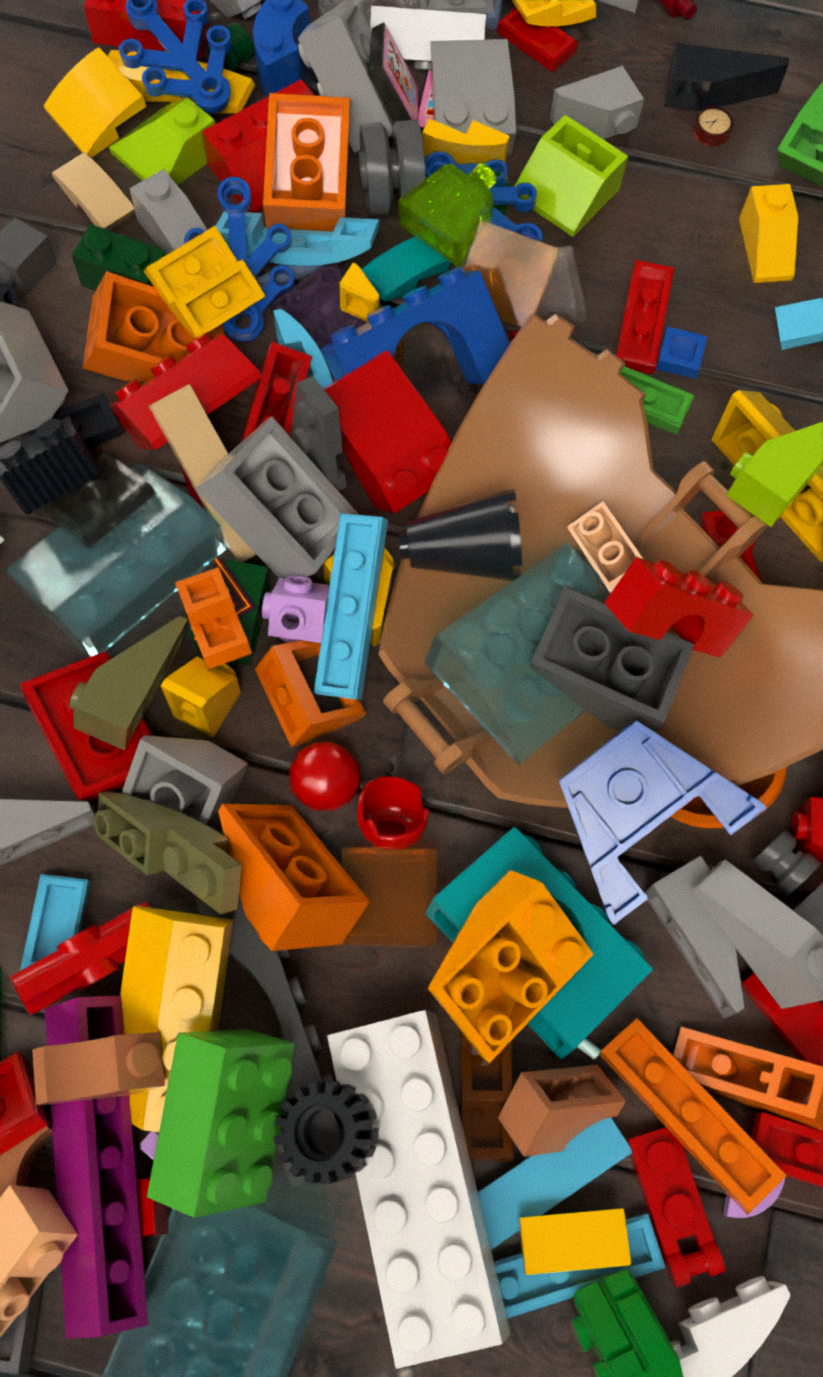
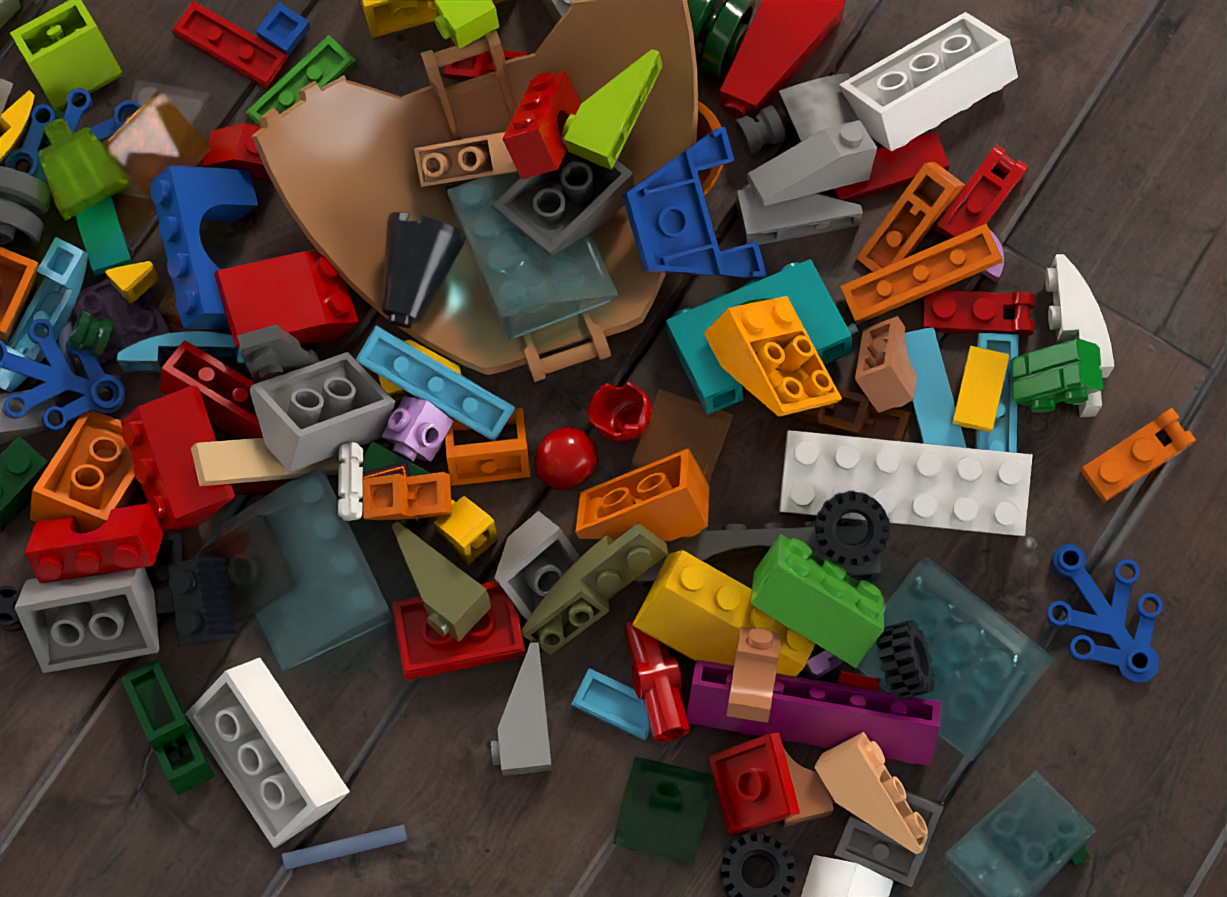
camera: 65 degrees left, 5 degrees up
(60, 333) = (122, 543): none -> red arch
(177, 1260) = (905, 660): none -> black tyre
(204, 283) = (68, 410): yellow slope -> none
(210, 556) = (350, 481): none -> white axle
(289, 276) = (90, 333): none -> dark green wheel
(719, 669) = (610, 113): none -> lime slope

